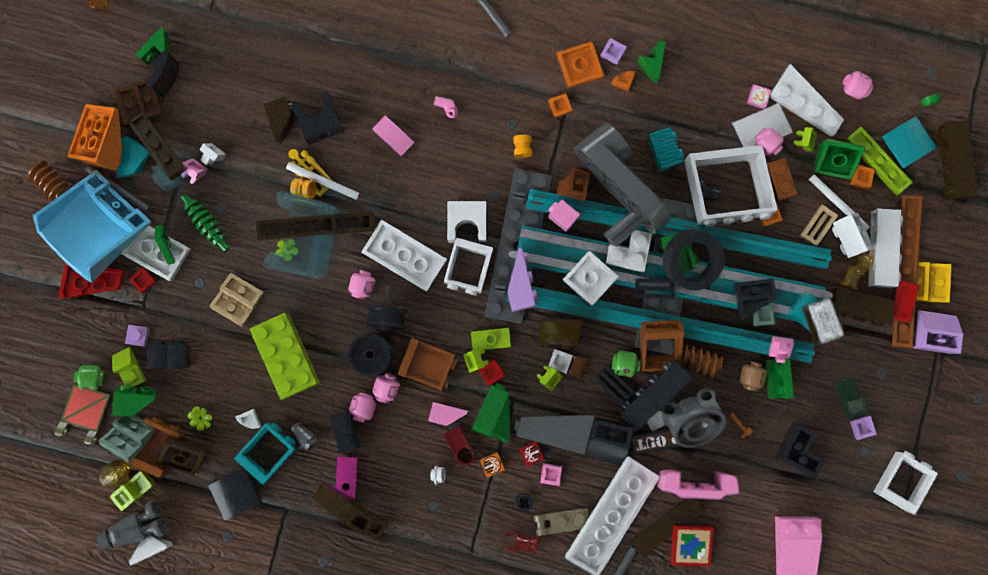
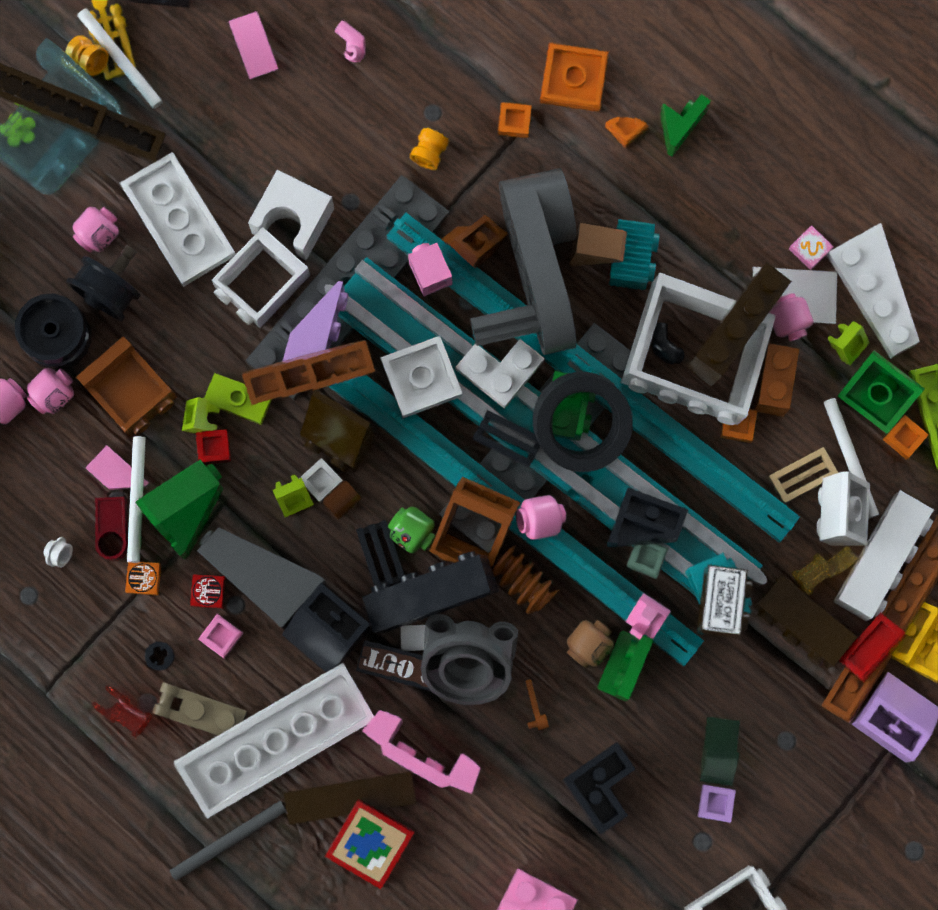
camera: 25 degrees right, 5 degrees down
(466, 424) = (136, 493): none -> white bar
(533, 306) = (308, 372): none -> dark orange slope
(613, 51) = (631, 80): lavender plate -> none
(645, 155) = (597, 245): none -> medium nougat slope
(696, 323) = (540, 517): none -> bright pink head
(749, 161) = (739, 324): none -> dark brown brick

